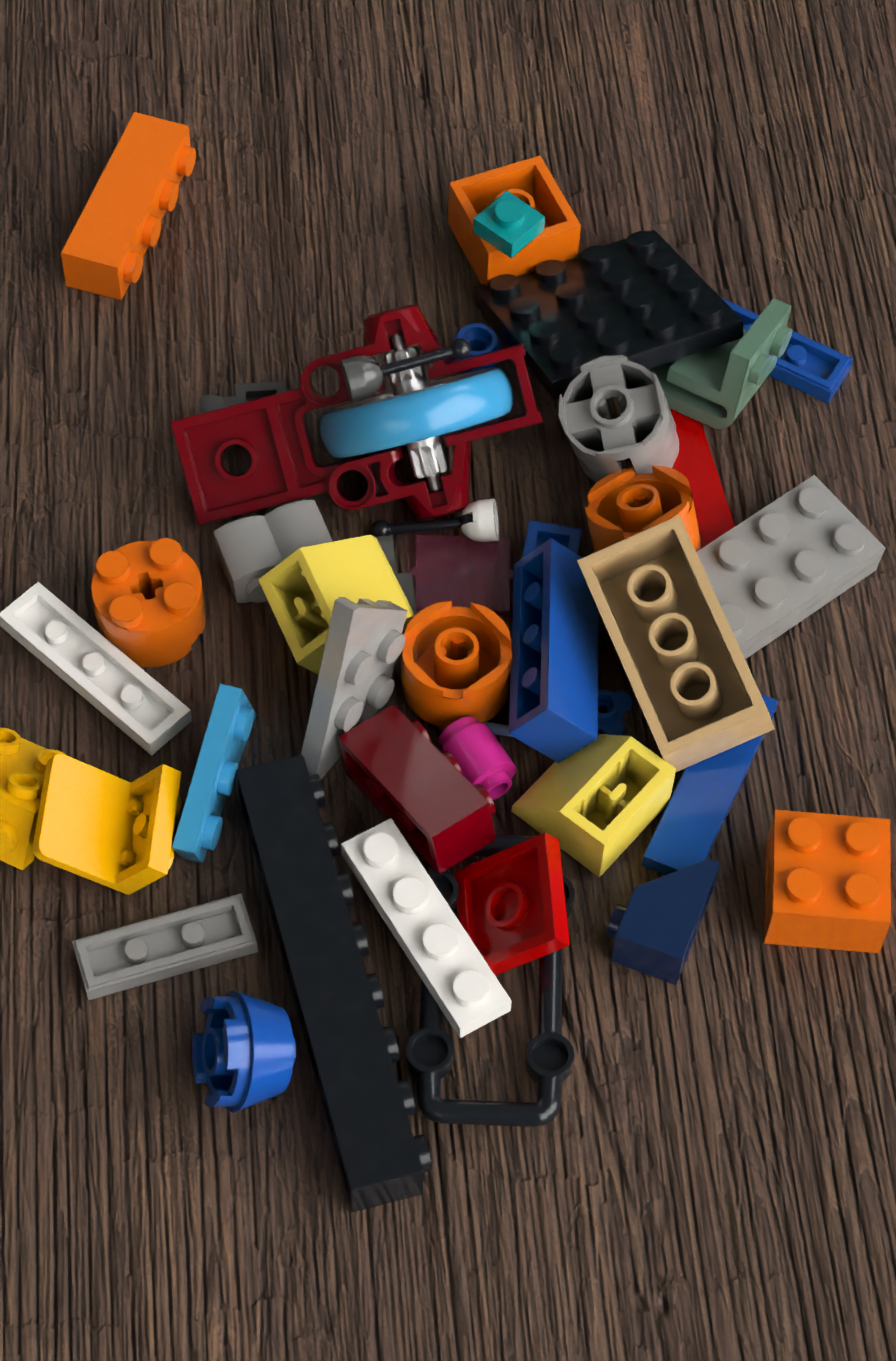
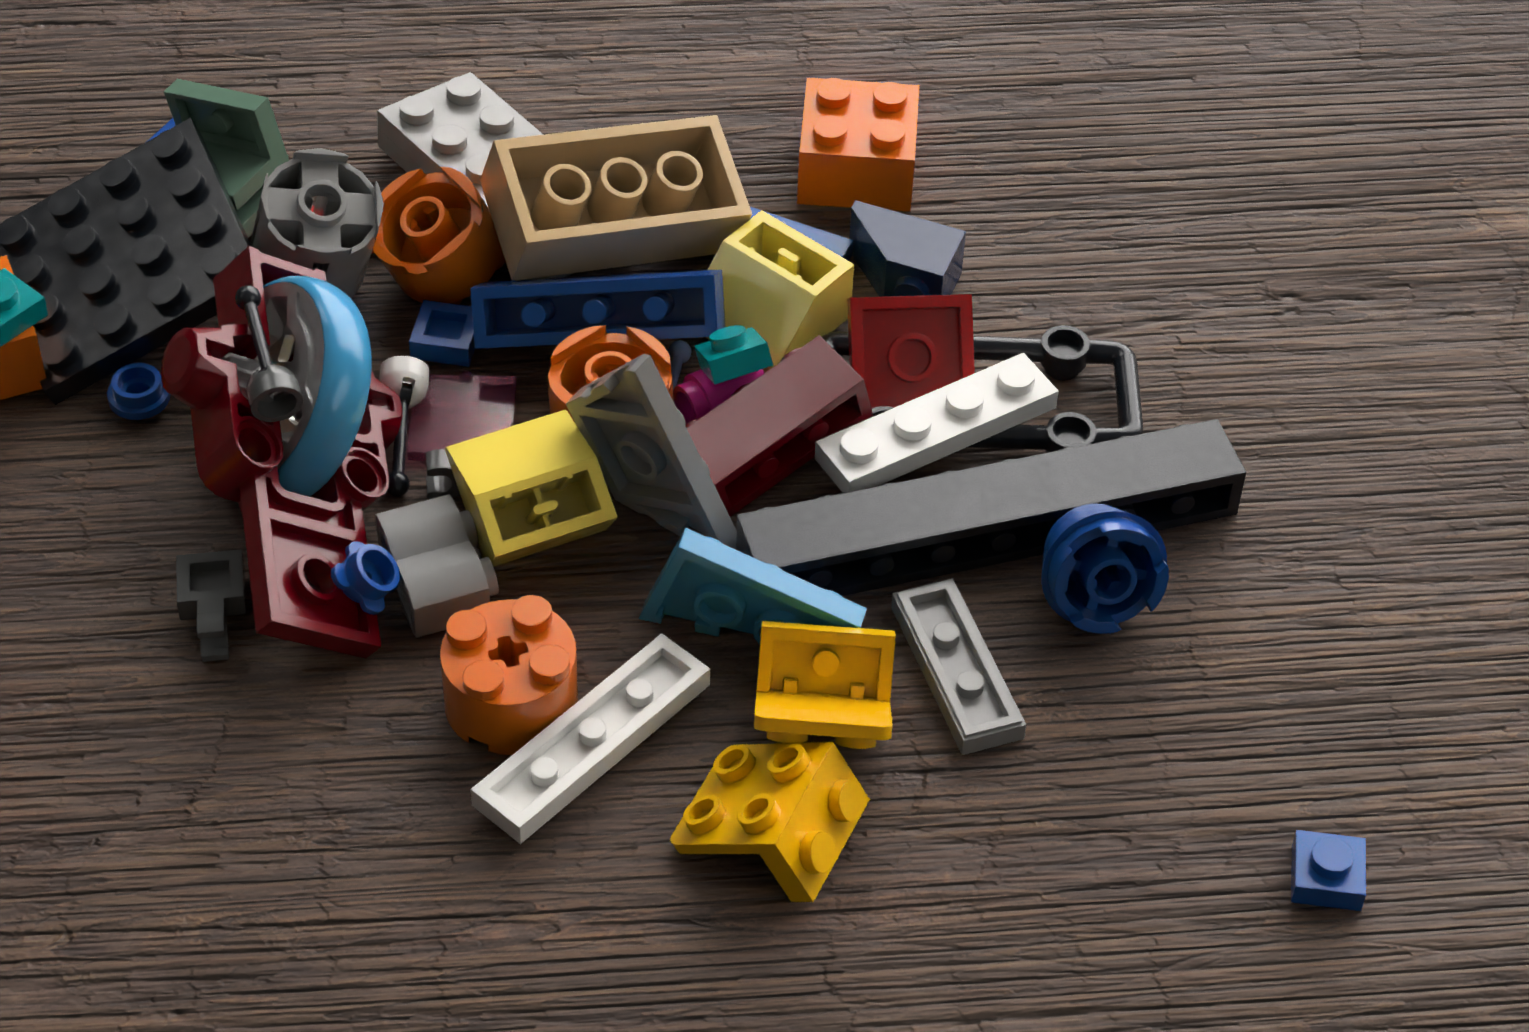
camera: 90 degrees left, 10 degrees down
(235, 480) = (367, 575): none -> blue plate
(481, 744) = (733, 353): none -> teal plate

